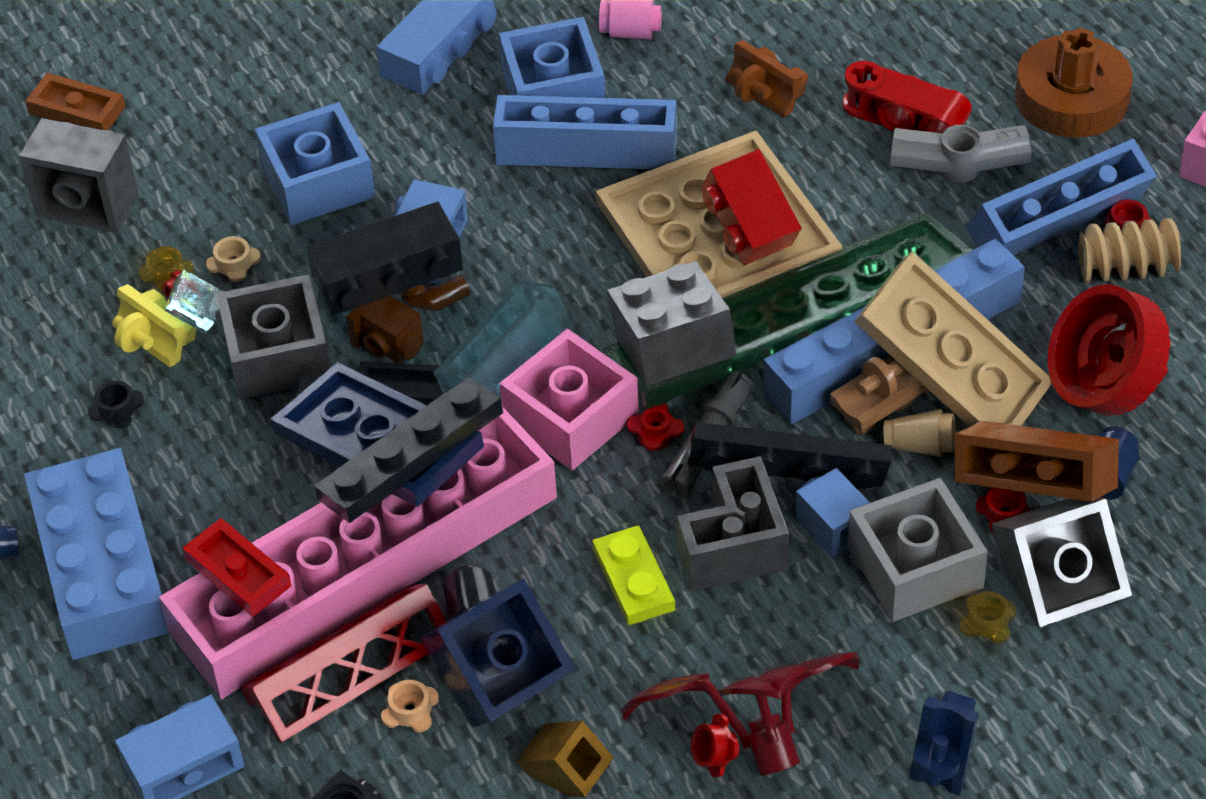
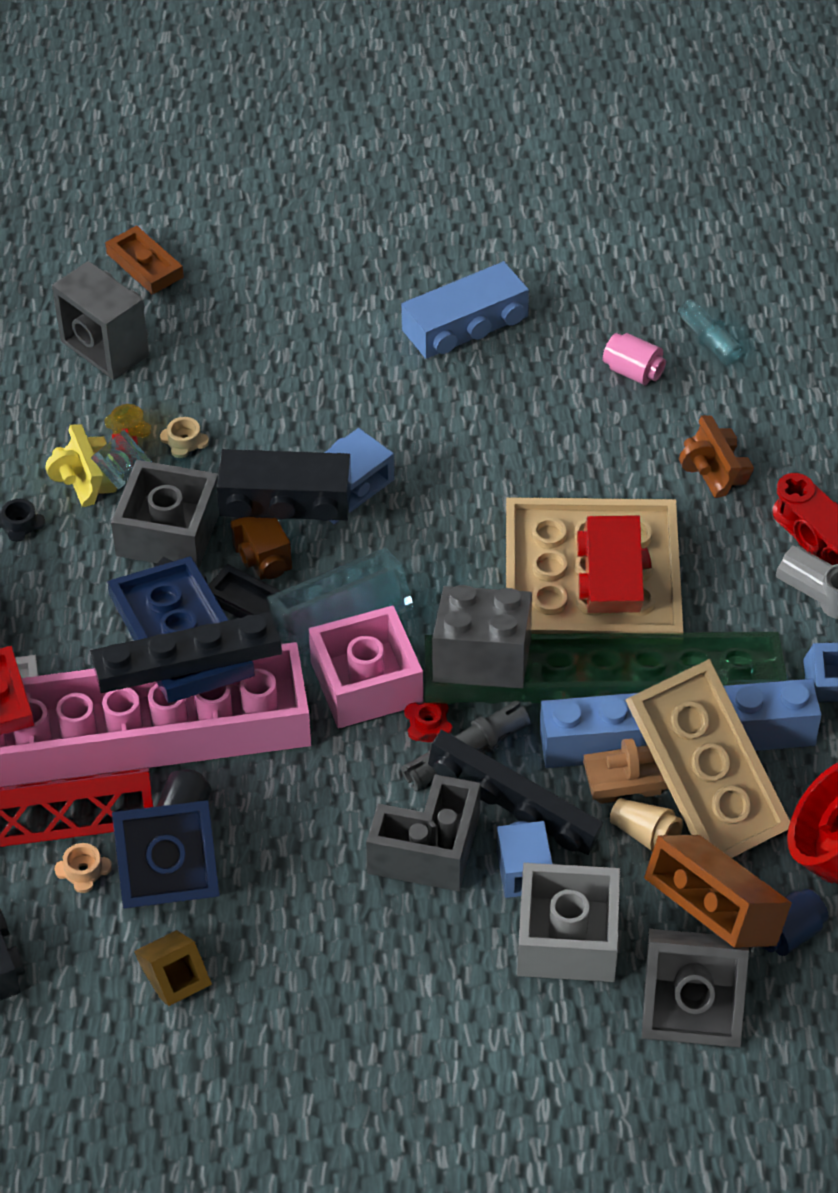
camera: 25 degrees right, 0 degrees up
(315, 163) = (291, 383): medium blue brick -> none
(439, 296) = (324, 535): reddish brown arm -> none
(552, 61) = (532, 382): medium blue brick -> none
(584, 132) = (527, 443): medium blue brick -> none
(633, 575) = (329, 839): neon yellow plate -> none
(714, 745) = (297, 1012): red plate -> none
(769, 736) = (340, 1023): dark red plant -> none
(945, 741) = (479, 1098): dark blue hips -> none
(991, 605) = (599, 996): clear yellow plate -> none
(998, 499) = (669, 911): red plate -> none

